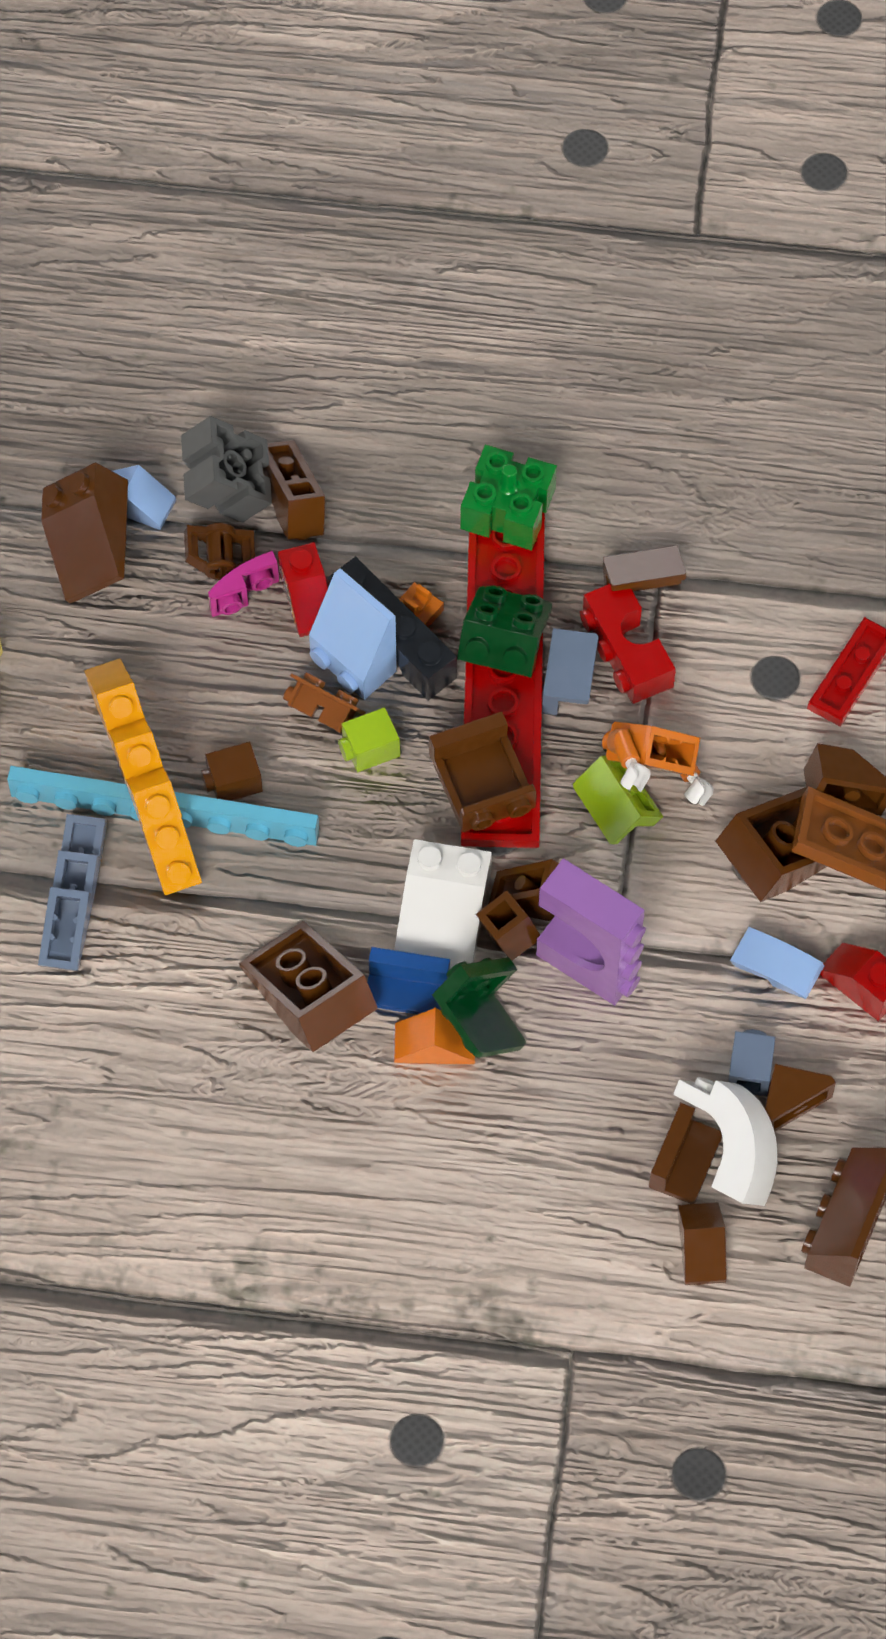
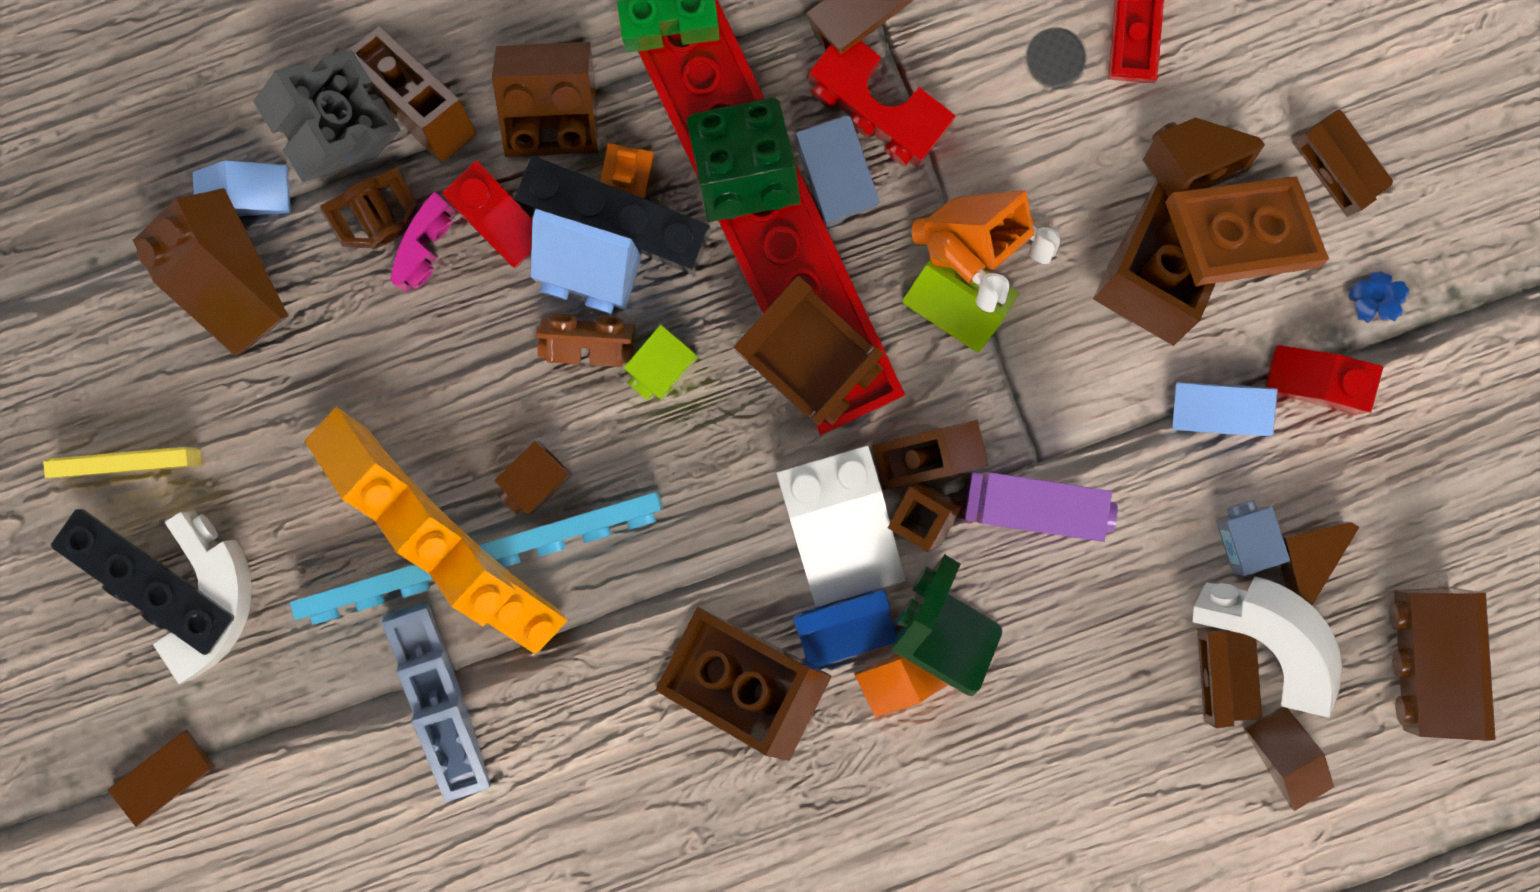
camera: 25 degrees left, 25 degrees up
(386, 533) = (546, 98): none -> reddish brown slope

